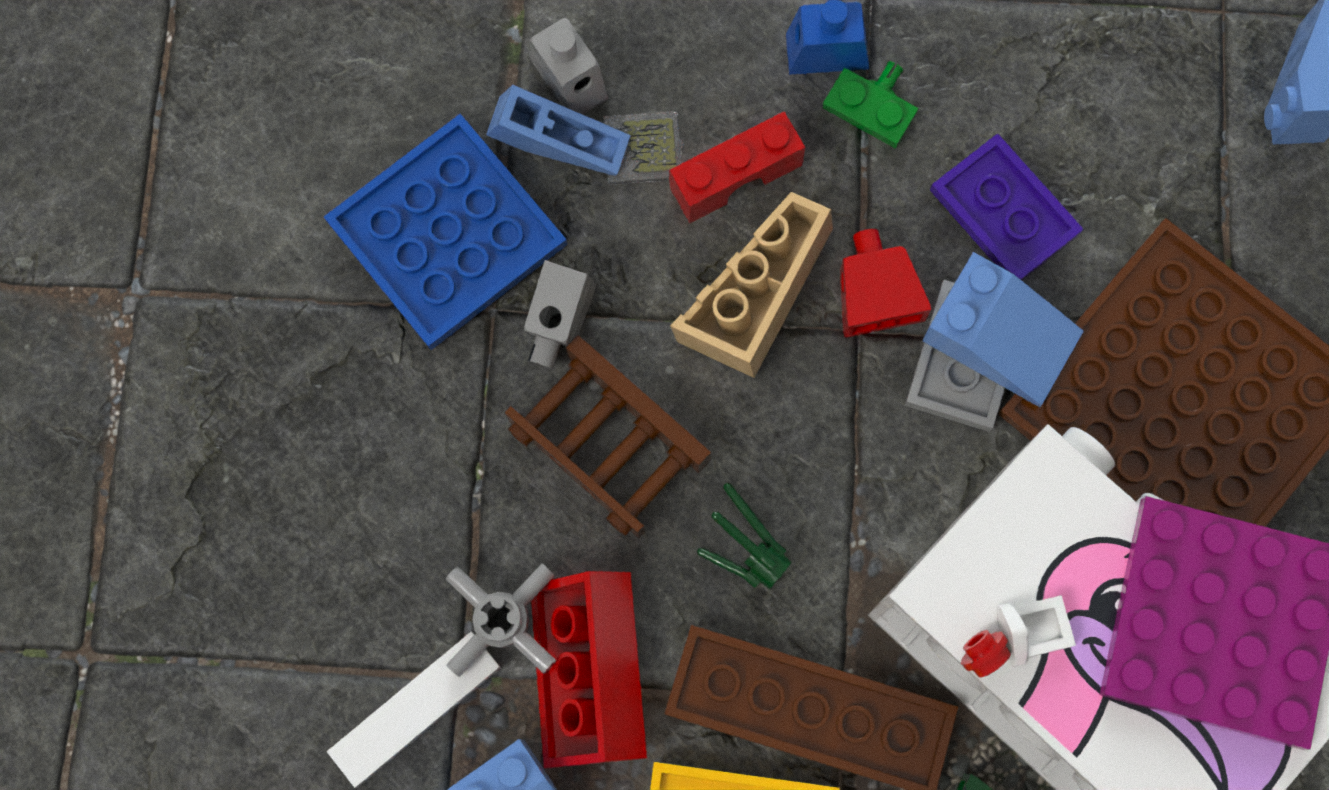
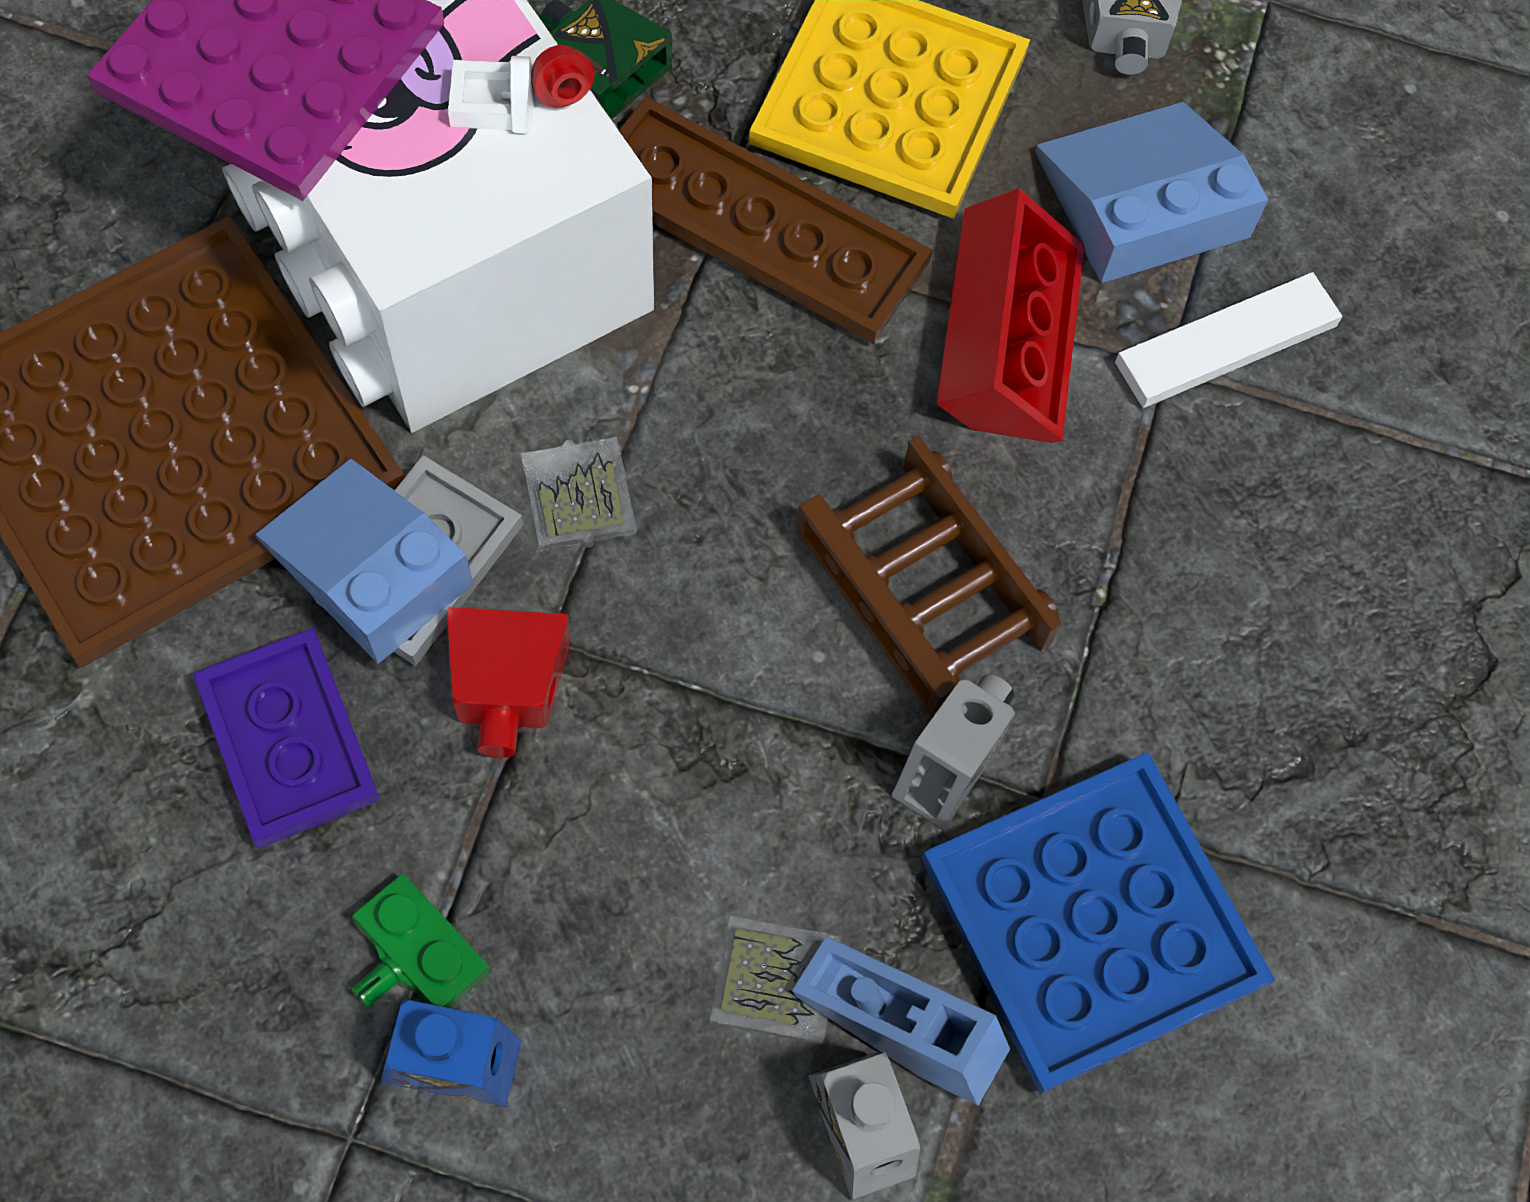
camera: 175 degrees left, 10 degrees down
(487, 606) = (1125, 392): light grey bar -> none
(712, 176) = (685, 879): red arch -> none
(751, 298) = (678, 700): tan wedge -> none
(765, 561) = (768, 384): dark green plant -> none
(874, 443) = (578, 493): none -> piece

